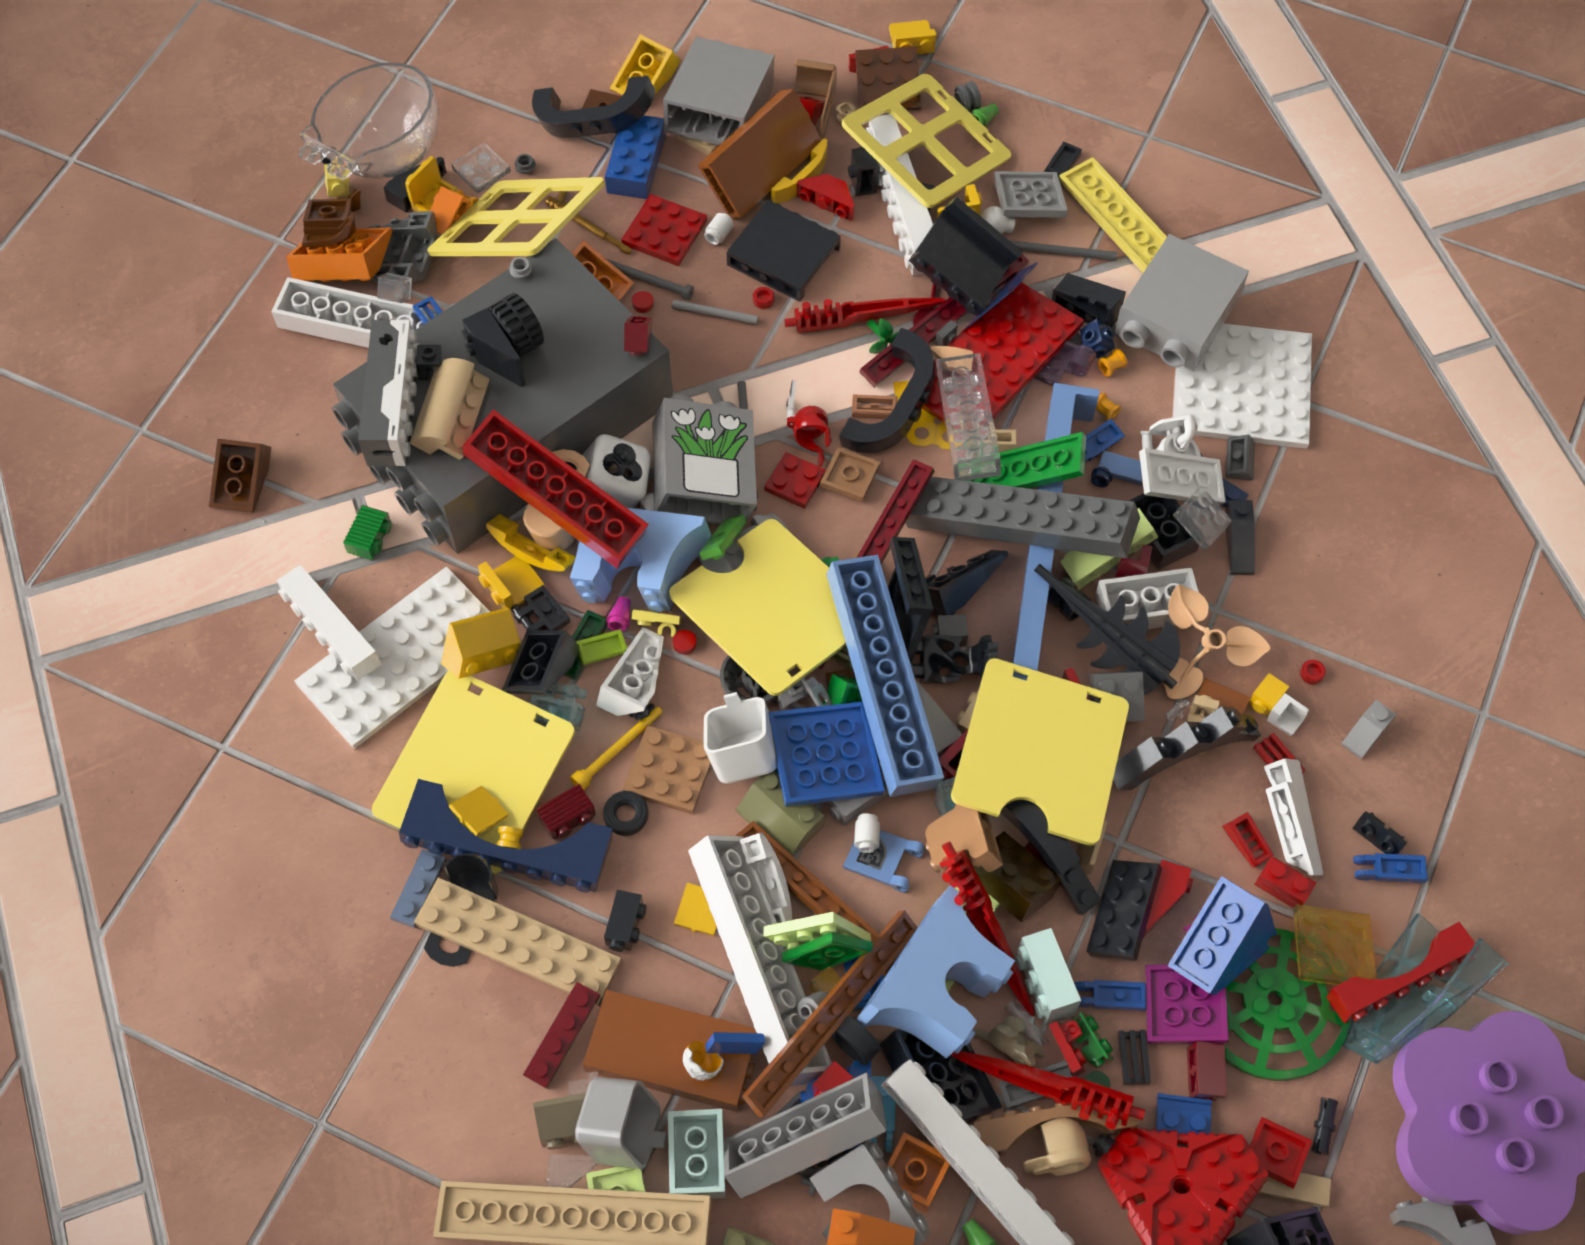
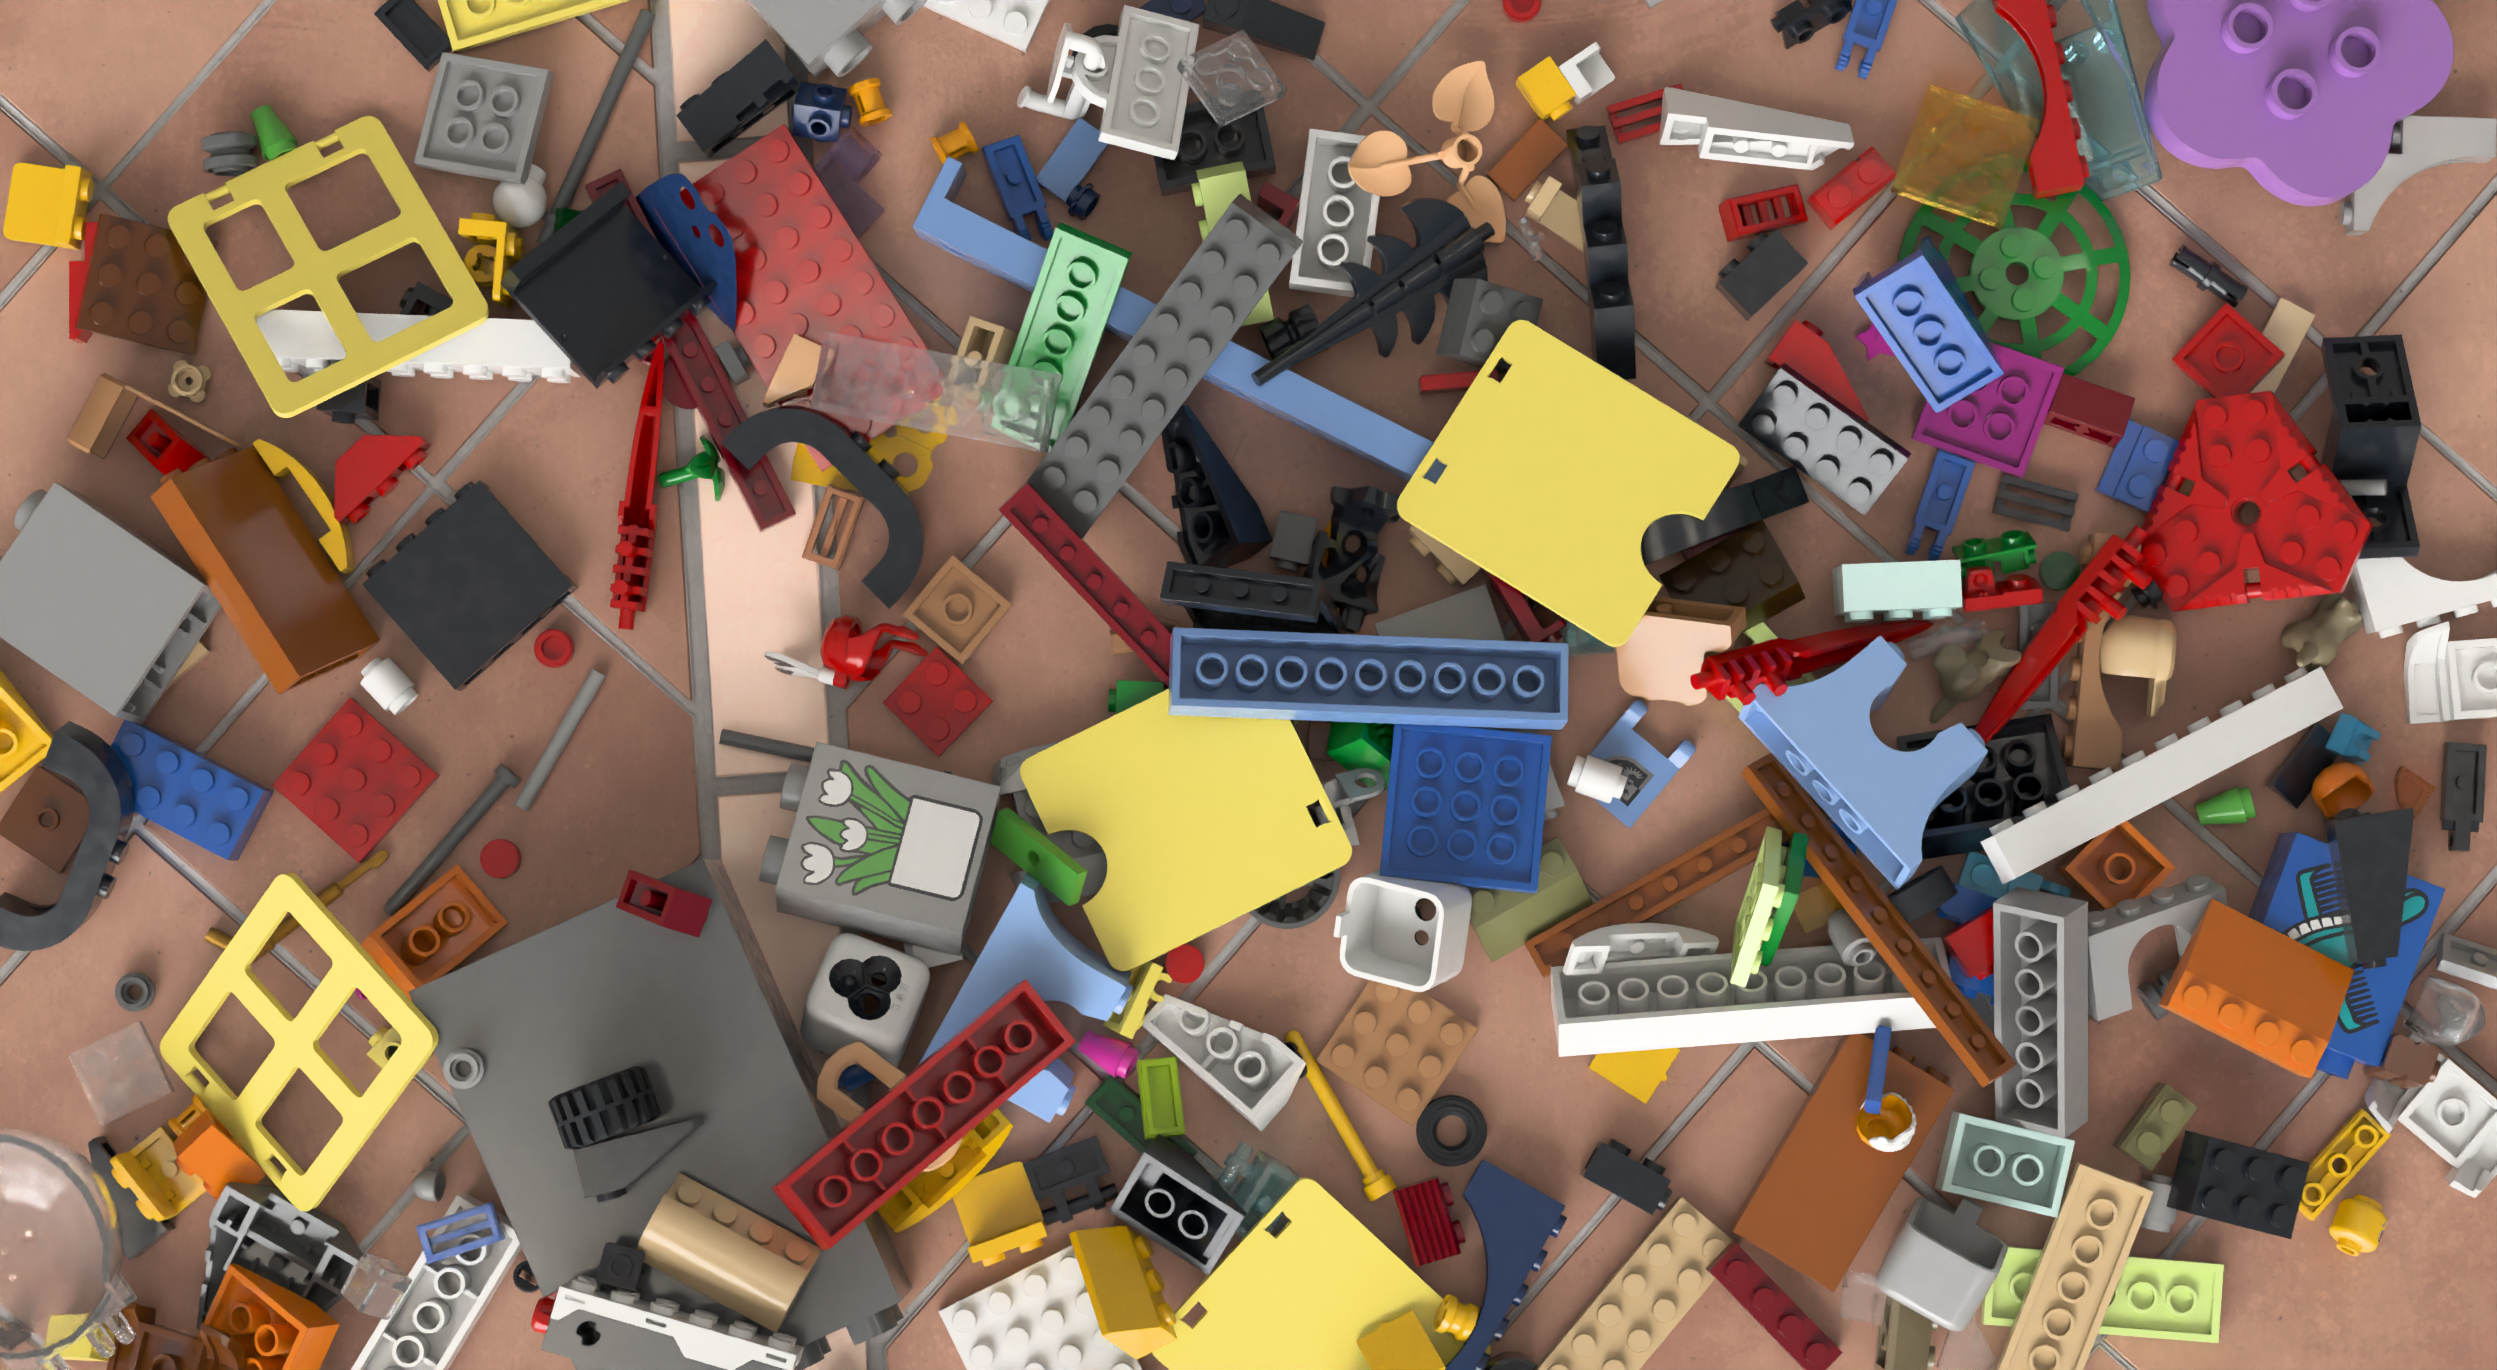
camera: 75 degrees left, 25 degrees up
(1210, 846) = (1761, 274): none -> black brick

